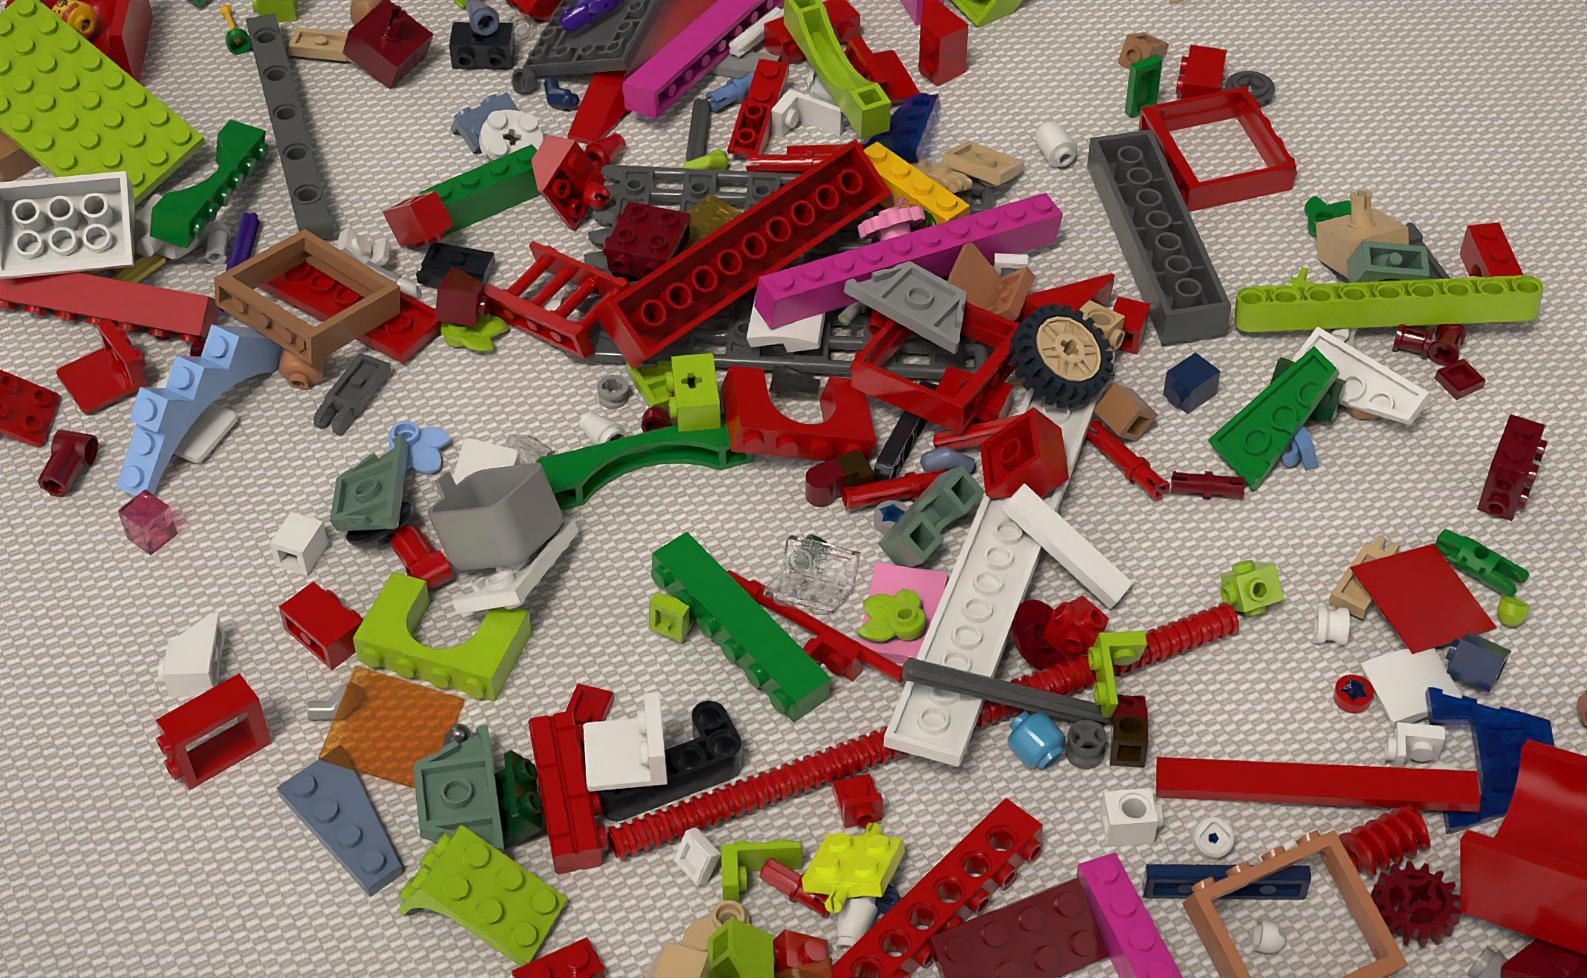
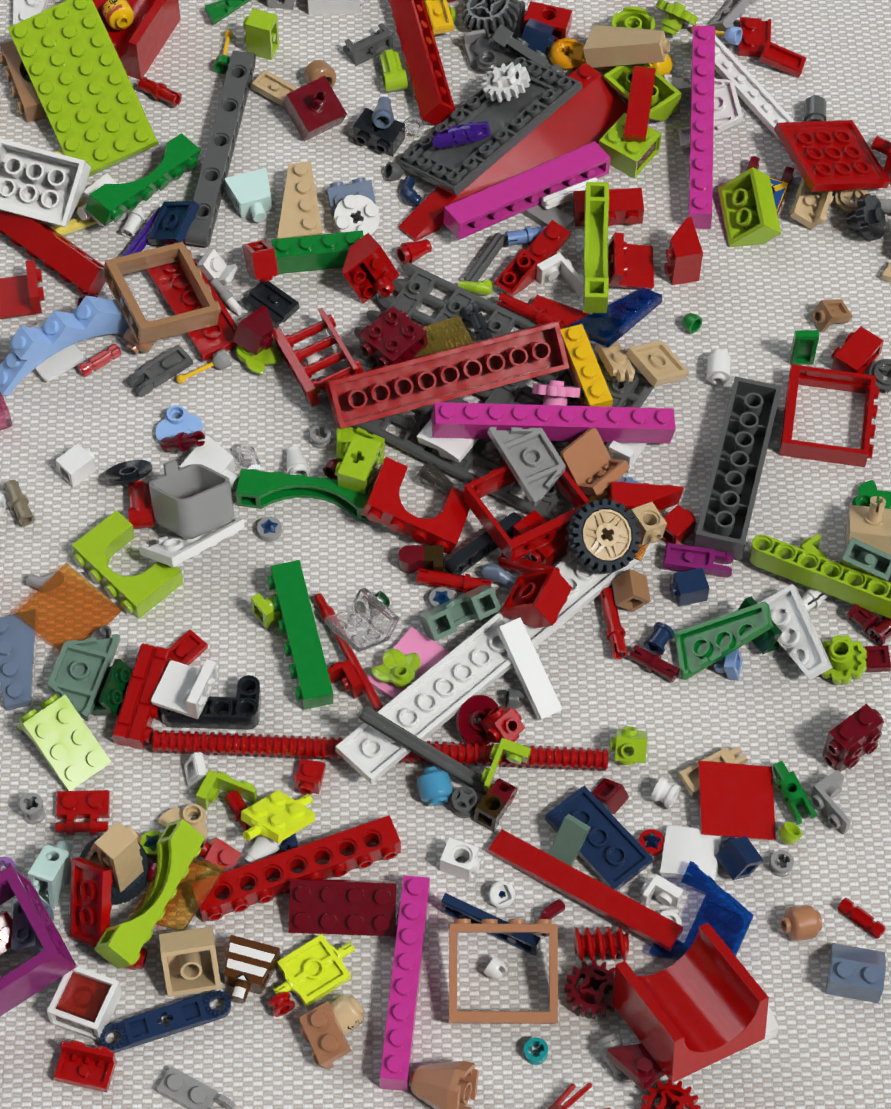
camera: 25 degrees right, 10 degrees up
(175, 93) = (159, 91): none -> red pin
(242, 620) = (18, 502): none -> dark tan pin
(259, 411) = (99, 360): none -> axle
(274, 216) = (172, 222): none -> dark blue plate
(321, 624) = (62, 525): red brick -> none
(356, 160) = (250, 194): none -> light aqua torso
(371, 491) = (134, 447): sand green wing -> none
(427, 352) = (219, 360): none -> hinge
(430, 144) = (300, 205): none -> tan wedge
(436, 458) = (183, 441): none -> dark red pin
(612, 522) = (269, 529): none -> light grey tile
(737, 189) = (478, 321): none -> black axle
(990, 112) = (692, 322): none -> green hinge
(1061, 592) = (512, 698): none -> dark grey hinge
(1164, 353) = (690, 557): none -> magenta hinge
(1194, 453) = (658, 638): none -> dark blue bush
(1260, 659) = (611, 795): none -> dark red slope
(1260, 727) = (569, 840): none -> sand green tile
(1286, 715) = (608, 846): none -> dark blue plate
(1291, 831) = (551, 911): none -> dark red arm
(1438, 382) = (846, 659): none -> lime plant
(1527, 640) = (785, 856): none -> light grey bush
(1536, 558) = (821, 798): none -> light grey bracket

